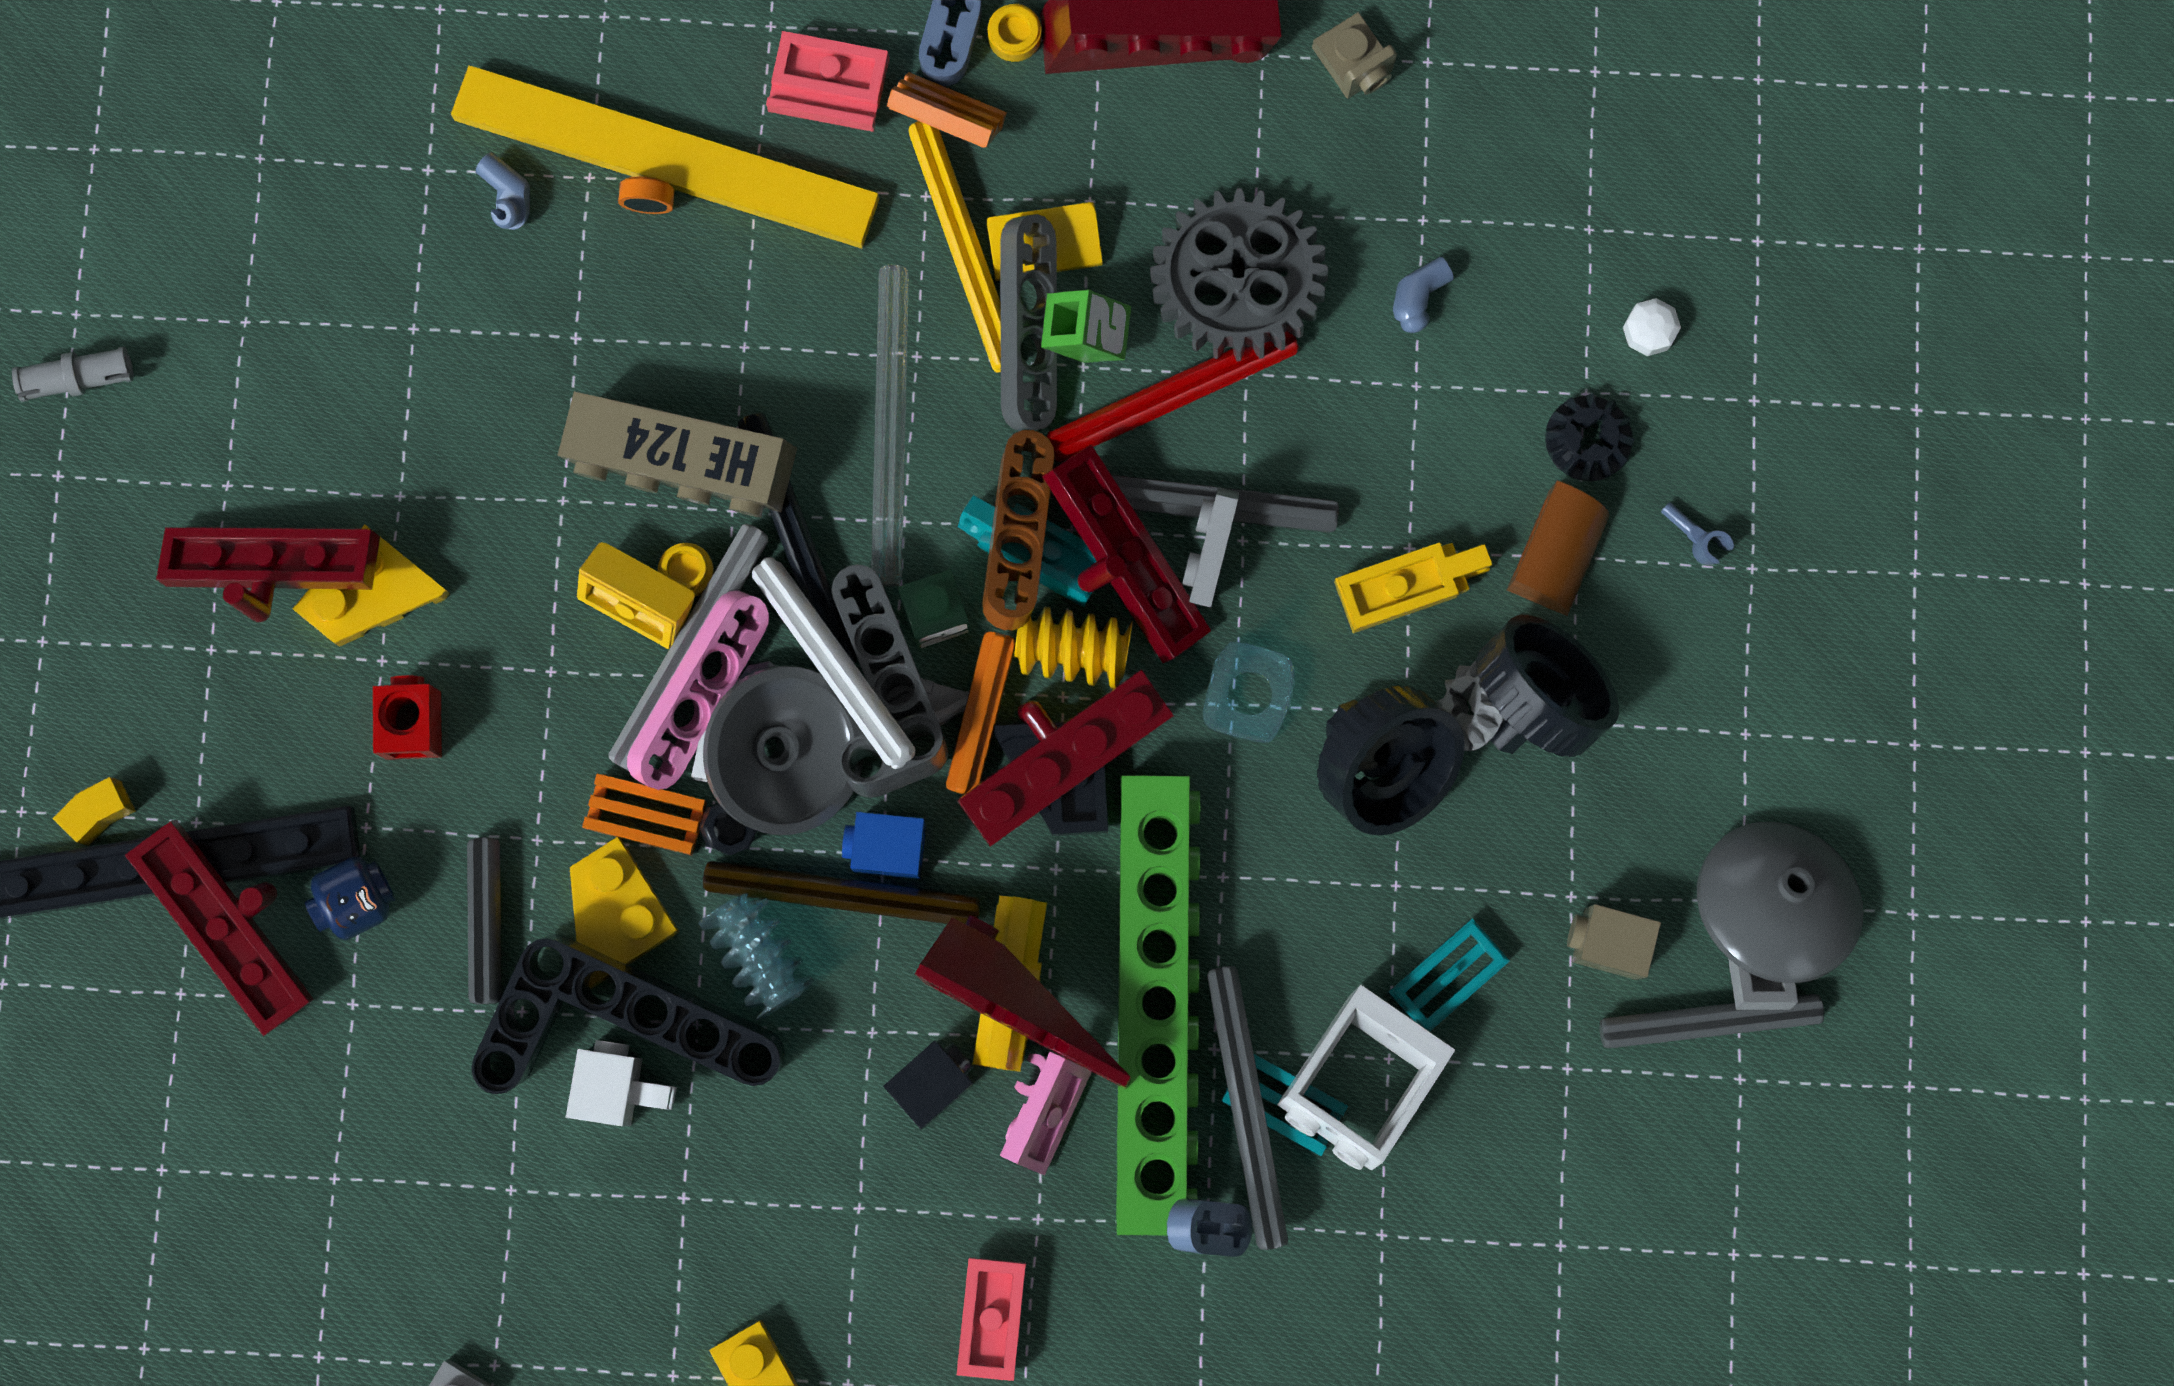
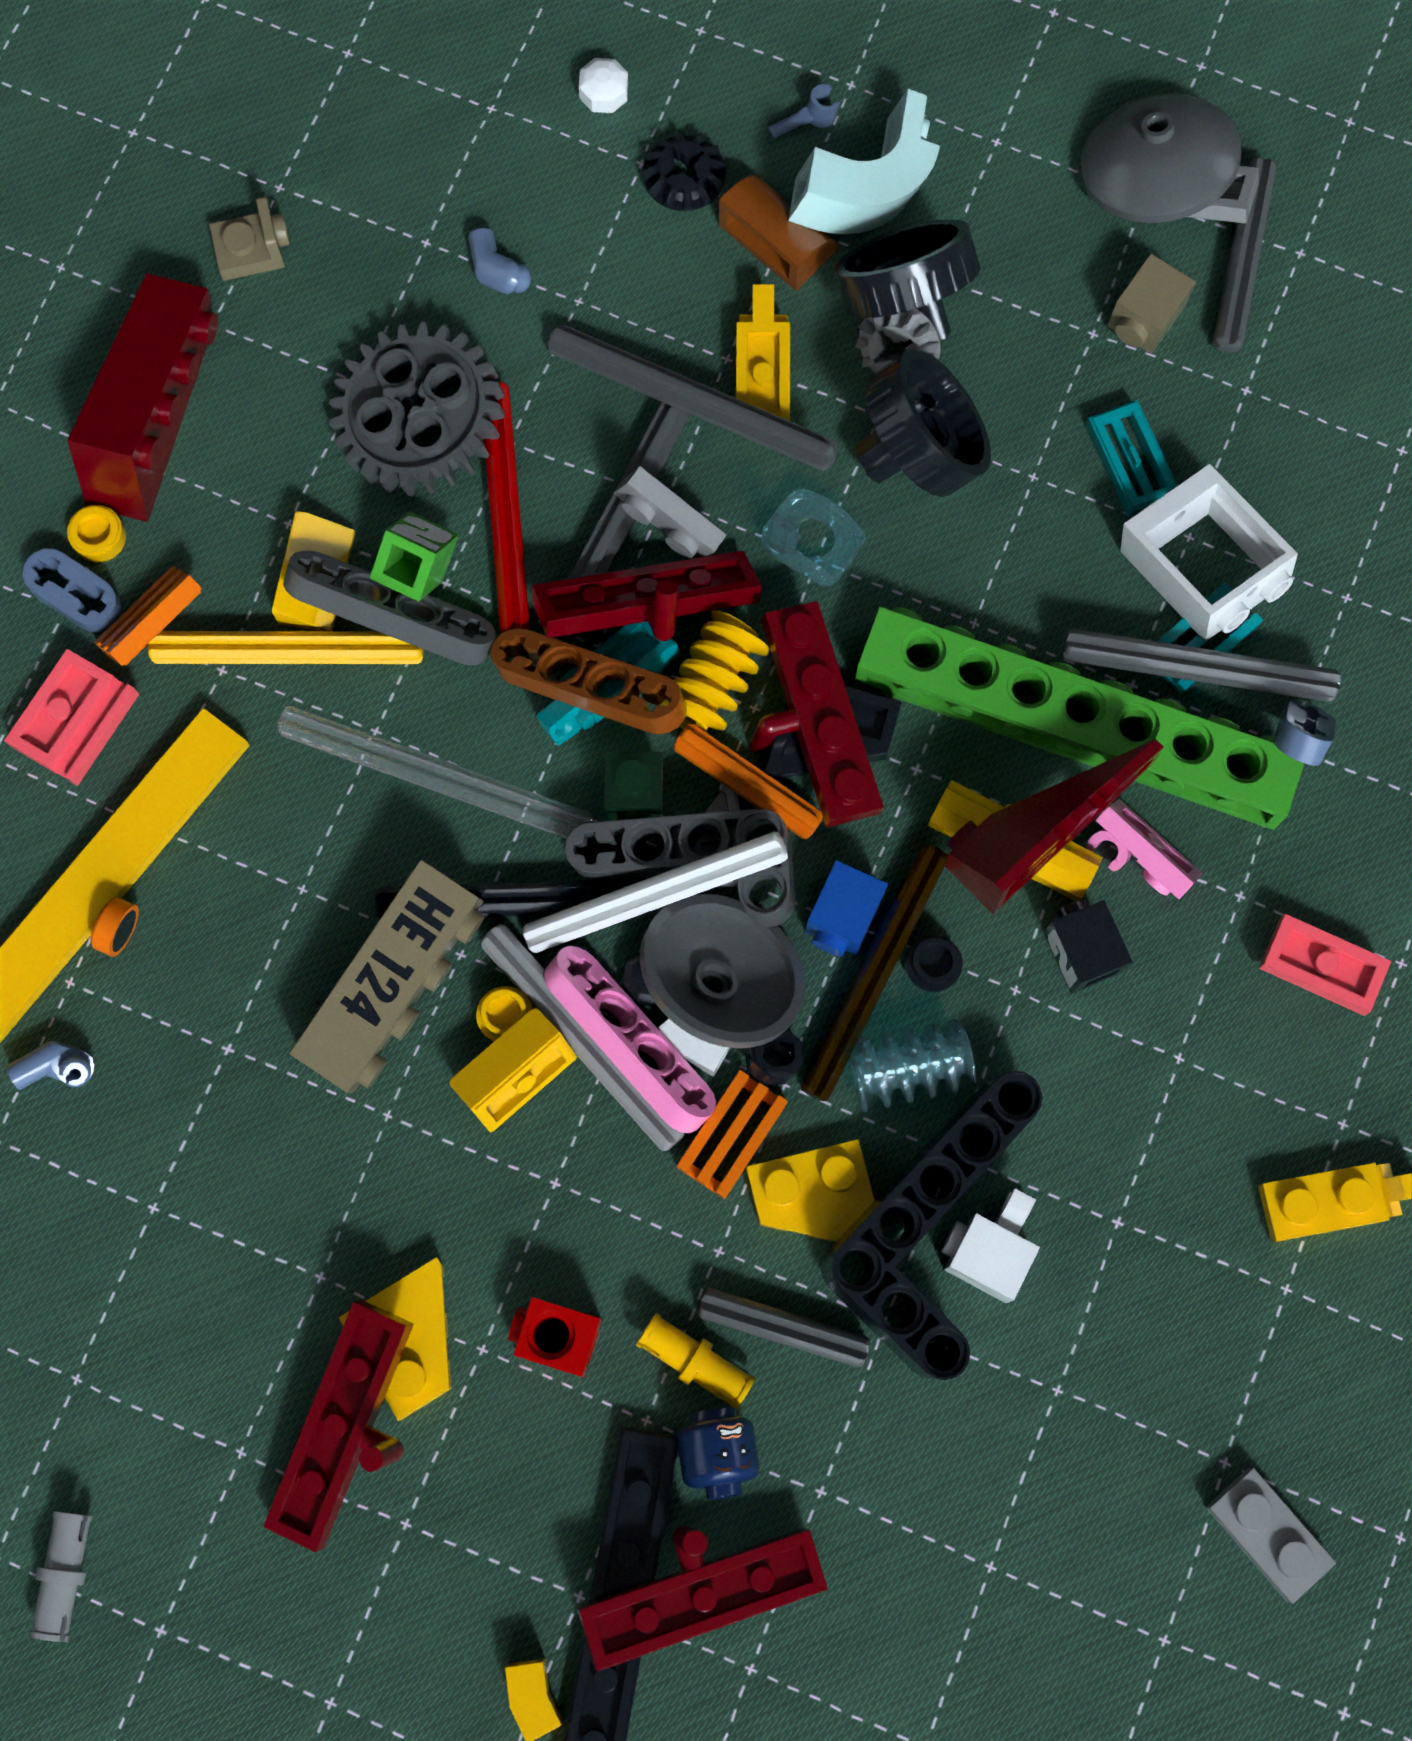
camera: 70 degrees left, 5 degrees down
(427, 851) = (695, 1361): none -> yellow pin
(867, 946) = (934, 963): none -> black plate
(1343, 528) = (693, 398): none -> dark grey axle
(1609, 609) = (859, 196): none -> light aqua arch

